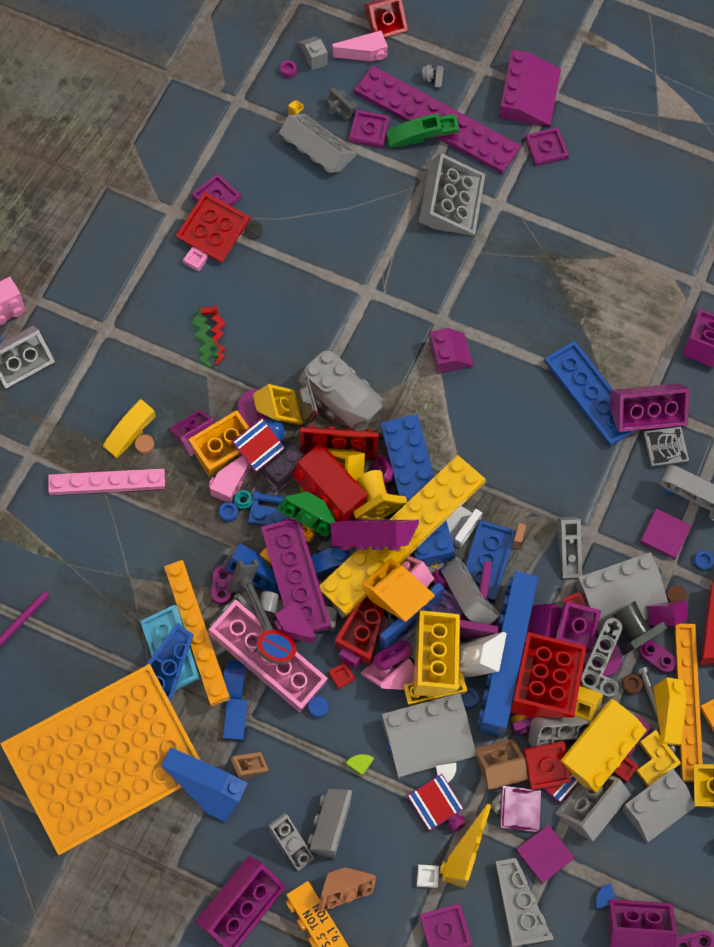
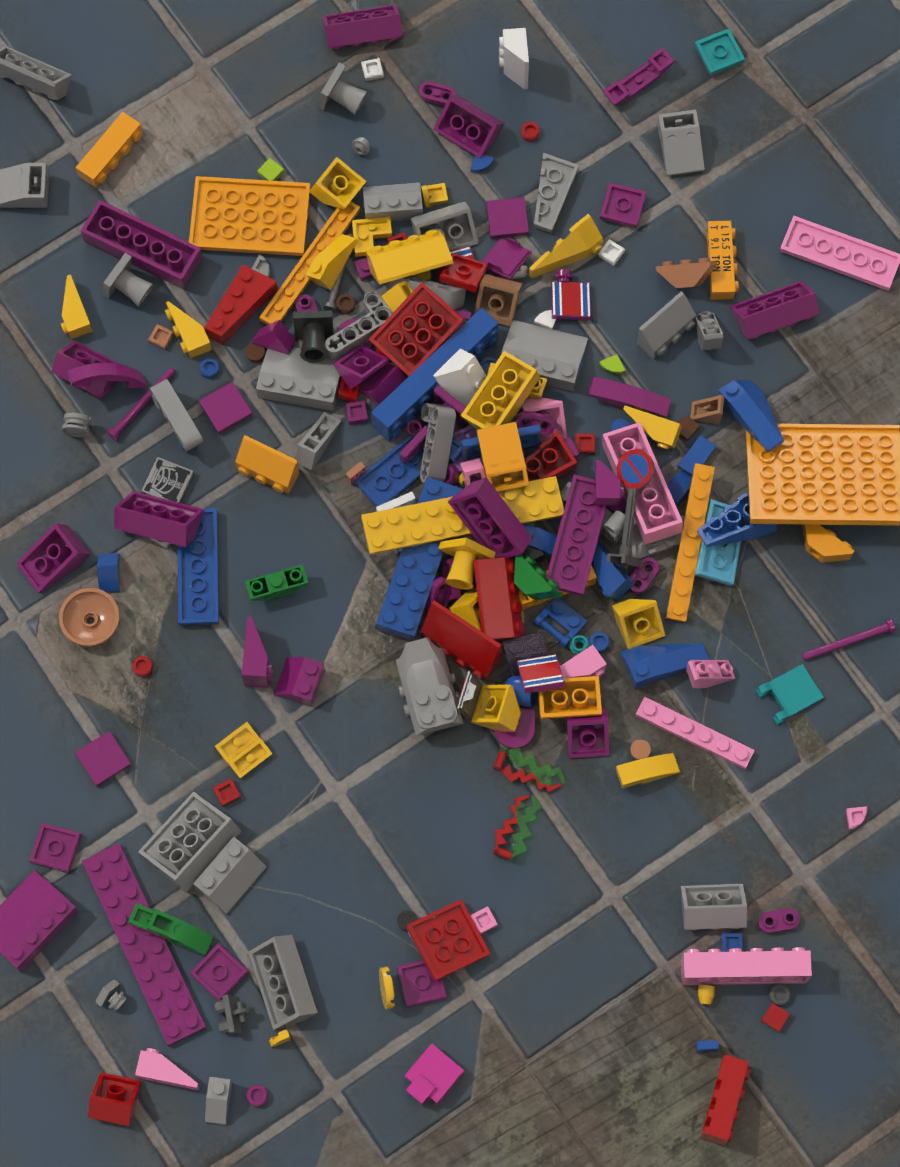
camera: 145 degrees left, 5 degrees up
(41, 558) = (792, 691): none -> teal flag
(68, 695) = (825, 545): none -> light orange slope
(120, 529) = (709, 672): none -> bright pink slope
(169, 138) = (432, 1076): none -> dark pink piece
(169, 519) = (657, 662): none -> blue wedge
(206, 540) = (638, 621): none -> yellow slope
(220, 384) = (535, 771): none -> piece
(238, 169) = (386, 987): none -> yellow tile
(259, 741) = (689, 427): none -> reddish brown tile
(284, 721) = (659, 429): none -> yellow slope
(326, 737) = (623, 395): none -> magenta slope
(406, 189) = (229, 875): none -> light grey slope
(449, 246) = (226, 792): none -> red tile
(449, 600) = (455, 450): none -> blue tile
(458, 281) = (243, 750): none -> yellow slope
(495, 343) = (256, 666): none -> magenta slope
(497, 601) = (413, 428): none -> magenta hose
(520, 407) = (277, 584): none -> green slope
(554, 592) = (356, 412): none -> magenta tile
(558, 221) = (103, 758): none -> magenta tile
(579, 299) = (142, 666): none -> red tile
(595, 499) = (267, 465): none -> light orange slope
(627, 836) = (434, 195): none -> yellow tile
(645, 296) = (86, 605): none -> nougat dish
(659, 353) = (108, 572): none -> blue slope

